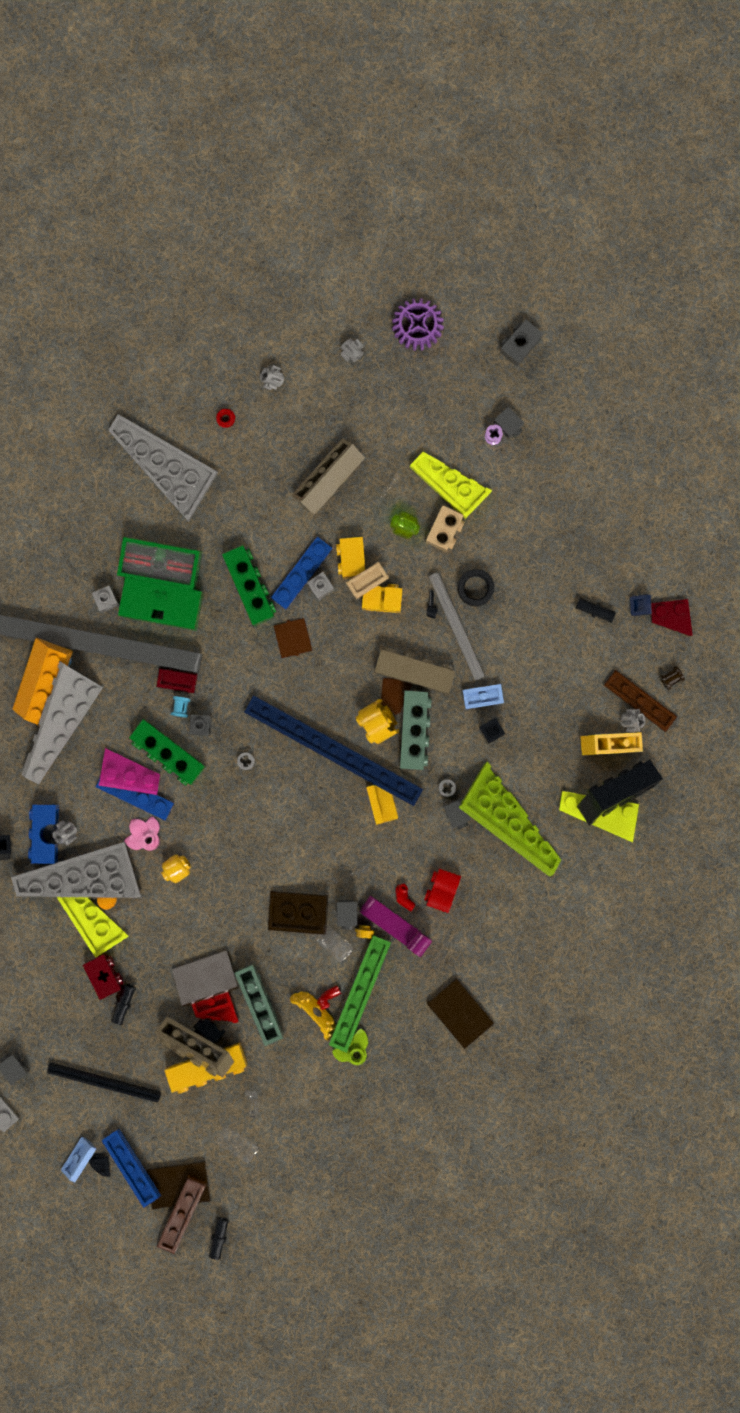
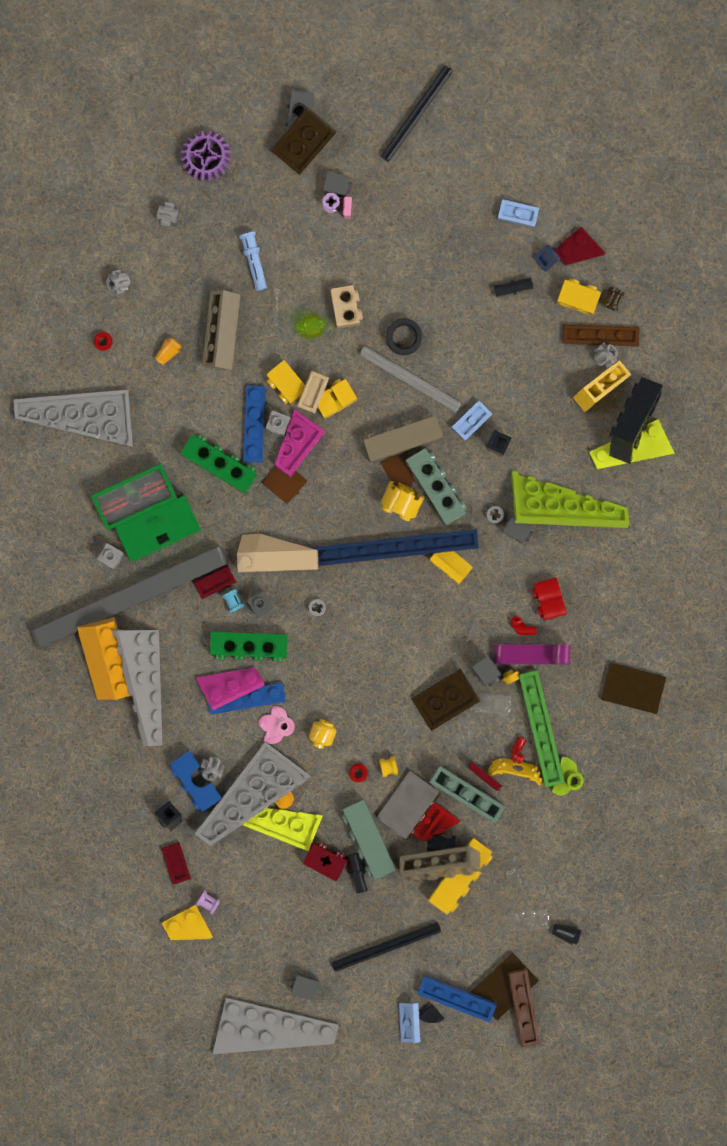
camera: 45 degrees left, 0 degrees up
(152, 983) = (369, 840): none -> sand green brick
(188, 917) = (364, 772): none -> red plate
(211, 934) = (388, 766): none -> yellow wheel
(218, 1238) = (567, 1005): black pin -> none
(237, 689) = (270, 554): none -> tan wedge
(261, 1178) = (567, 933): none -> black cone
(275, 462) = (168, 350): none -> light orange cone
(284, 998) = (484, 776): none -> dark red tile
(326, 614) = (299, 441): none -> dark pink wing
(399, 430) = (251, 252): none -> light blue pin
(431, 611) = (382, 381): black hand -> none
(450, 484) = (329, 268): neon yellow wing -> none
(502, 450) = (347, 208): none -> bright pink tile
(506, 367) = (303, 140): none -> dark brown tile
(617, 410) = (416, 114): none -> black axle
(643, 552) = (518, 213): none -> light blue plate
(644, 656) = (579, 297): none -> yellow brick

